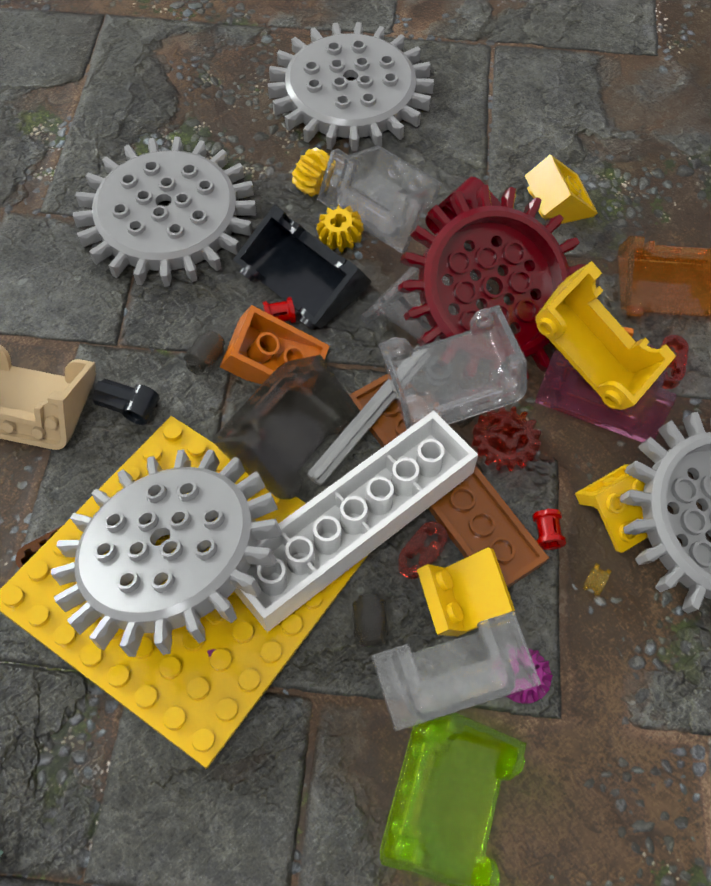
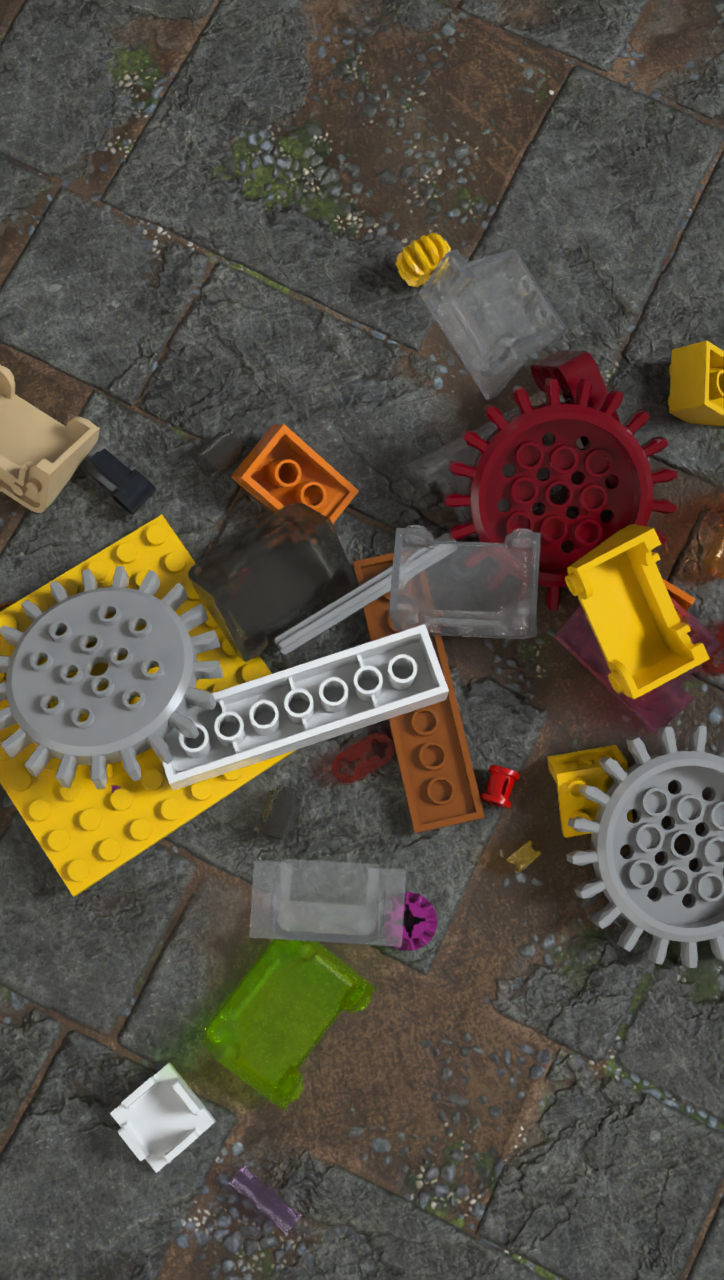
camera: 20 degrees right, 15 degrees up
(153, 243) = (209, 295): light grey gear -> none
(281, 310) = (318, 430): red bush -> none
(300, 268) = (363, 386): black windscreen -> none
(326, 102) = (557, 182): light grey gear -> none
(340, 228) = (419, 338): yellow gear -> none
(465, 593) = (381, 822): yellow bracket -> none
(510, 434) = (487, 667): clear red gear -> none

